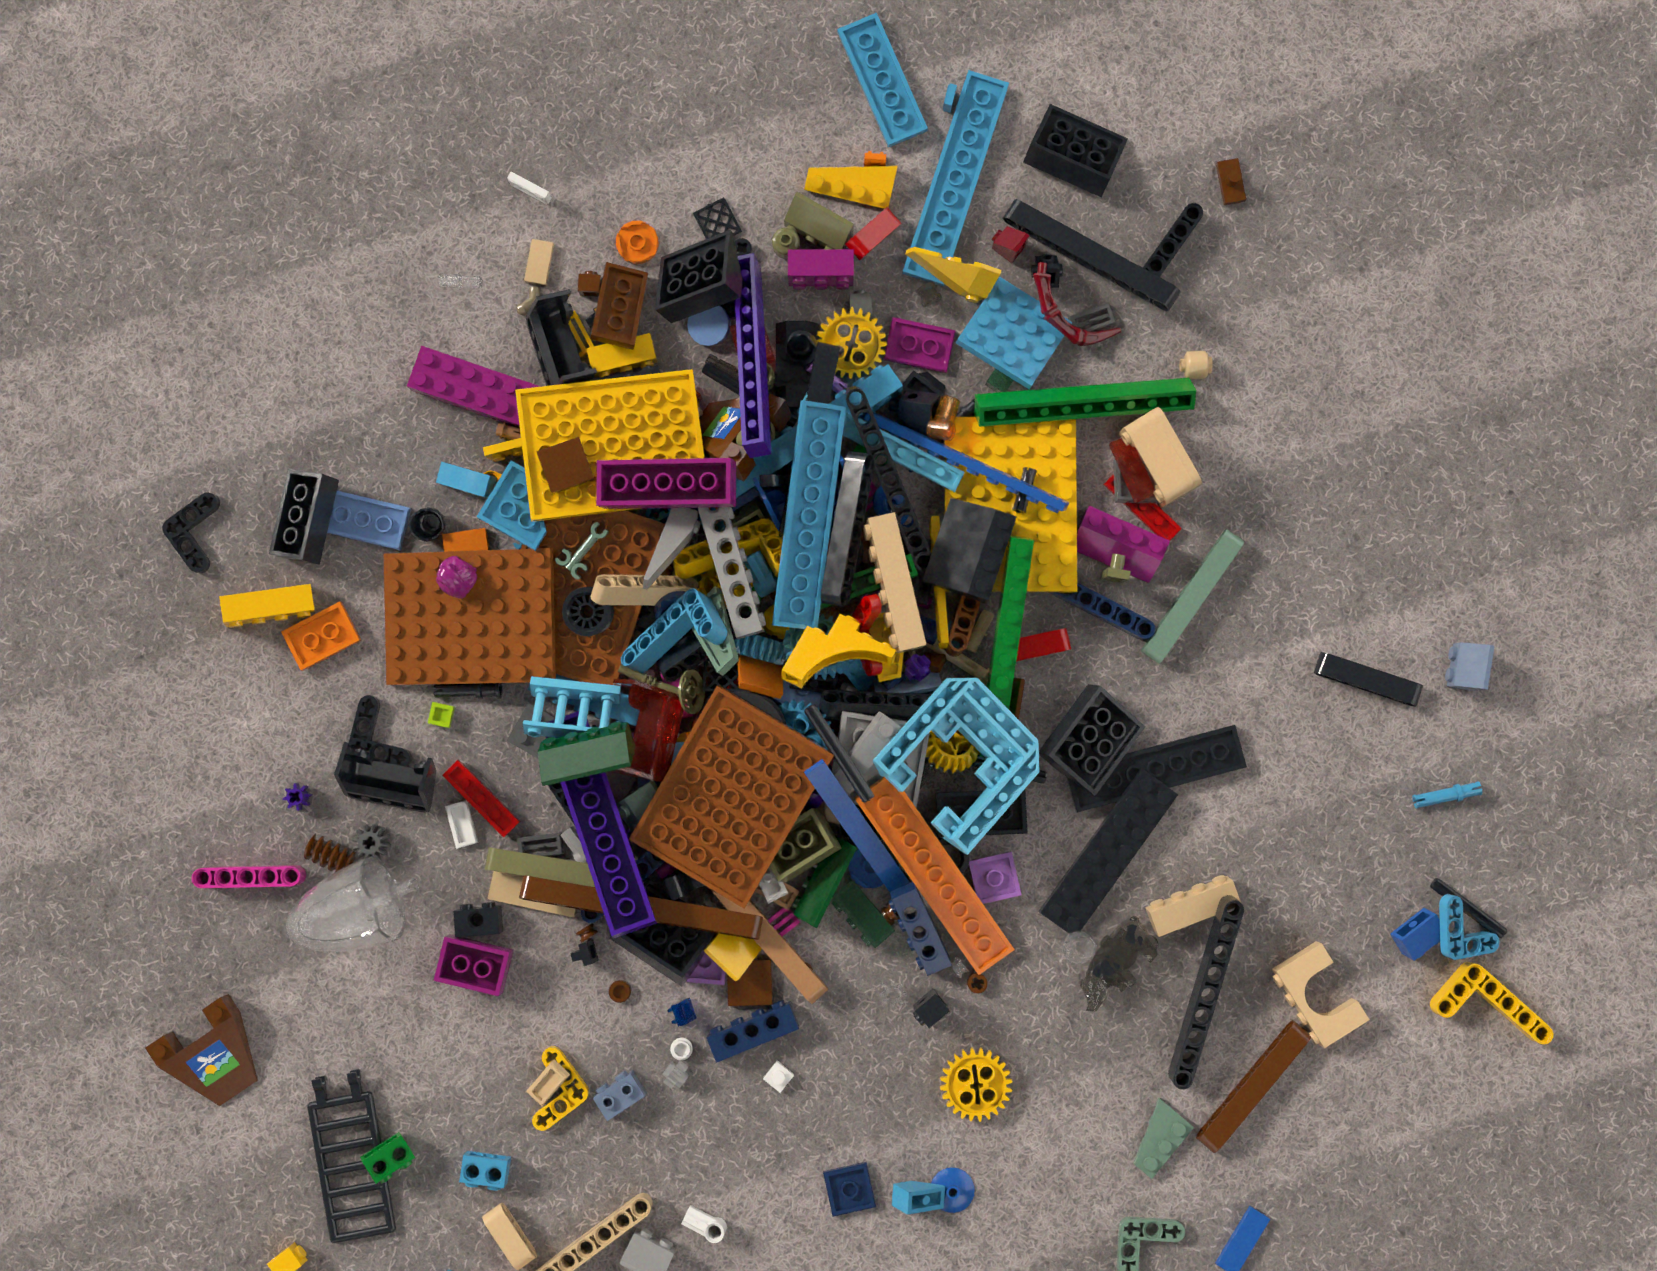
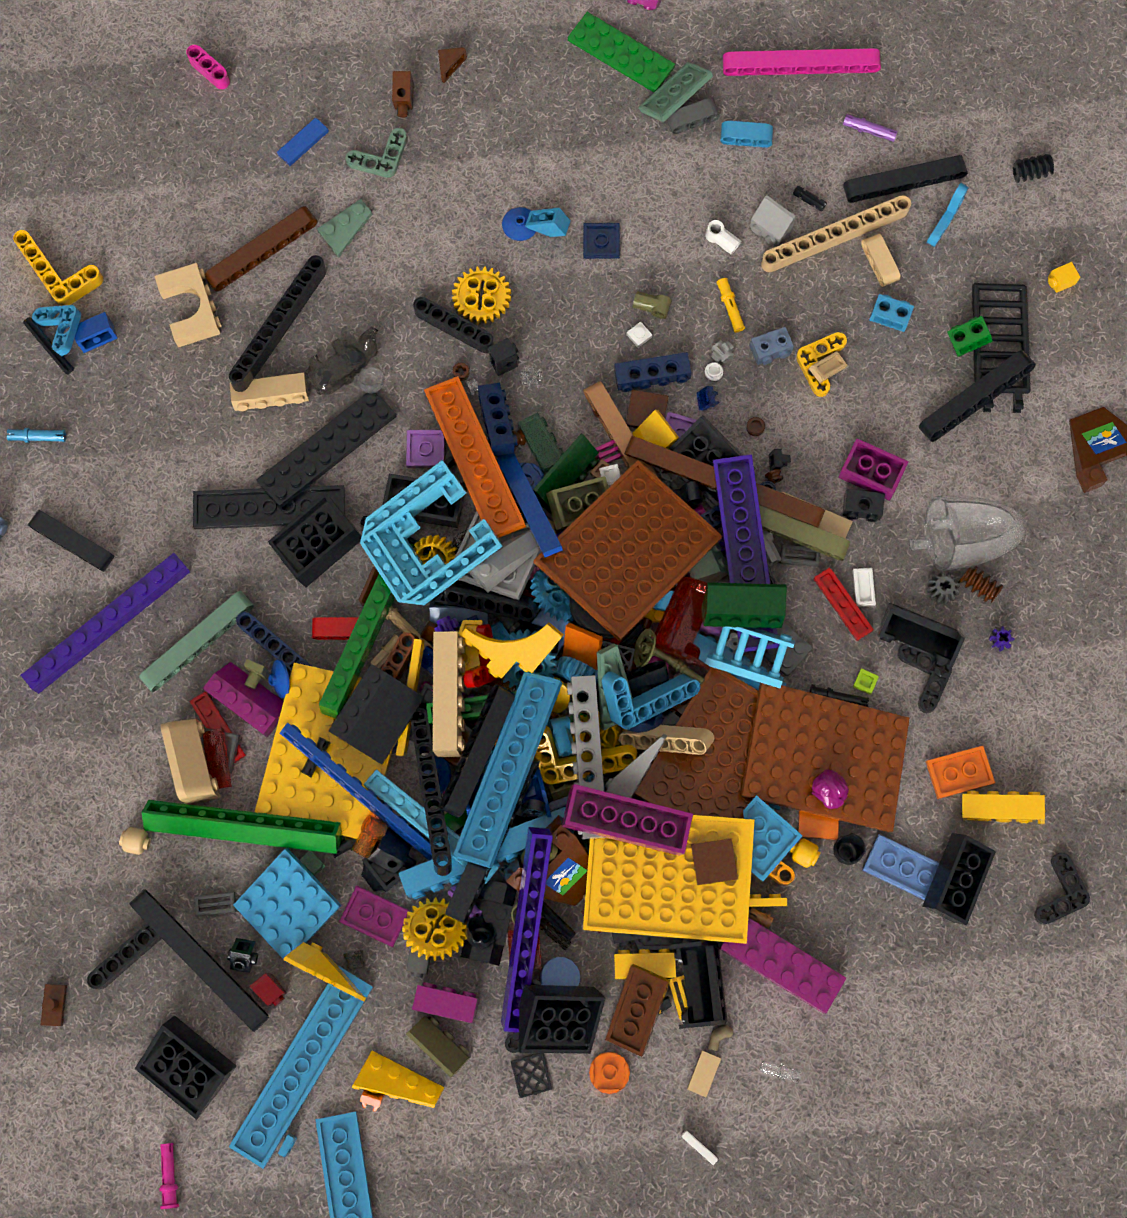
camera: 165 degrees left, 10 degrees down
(238, 876) = (1061, 579): dark pink beam -> none
(366, 1082) = (977, 395): none -> black beam
(466, 479) = (807, 880): dark azure slope -> none
(469, 509) = (805, 853): none -> yellow head
(572, 562) = (724, 779): sand green bar -> none
(573, 625) = (735, 725): black wheel -> none
(589, 284) = (660, 1040): reddish brown plate -> none
(682, 1146) = (729, 301): none -> yellow pin
(764, 1117) = (656, 305): none -> olive piece
(785, 240) = (472, 1037): olive head -> none
(839, 753) = (528, 559): black axle -> none
(873, 233) = (390, 1026): beam -> none
(1007, 1046) = (448, 318): none -> black beam
(1055, 318) = (247, 909): dark red animal -> none
(1059, 33) = (168, 1186): none -> dark pink pin
(1088, 571) = (279, 678): none -> blue dish
(1299, 593) = (105, 623): none -> dark purple brick

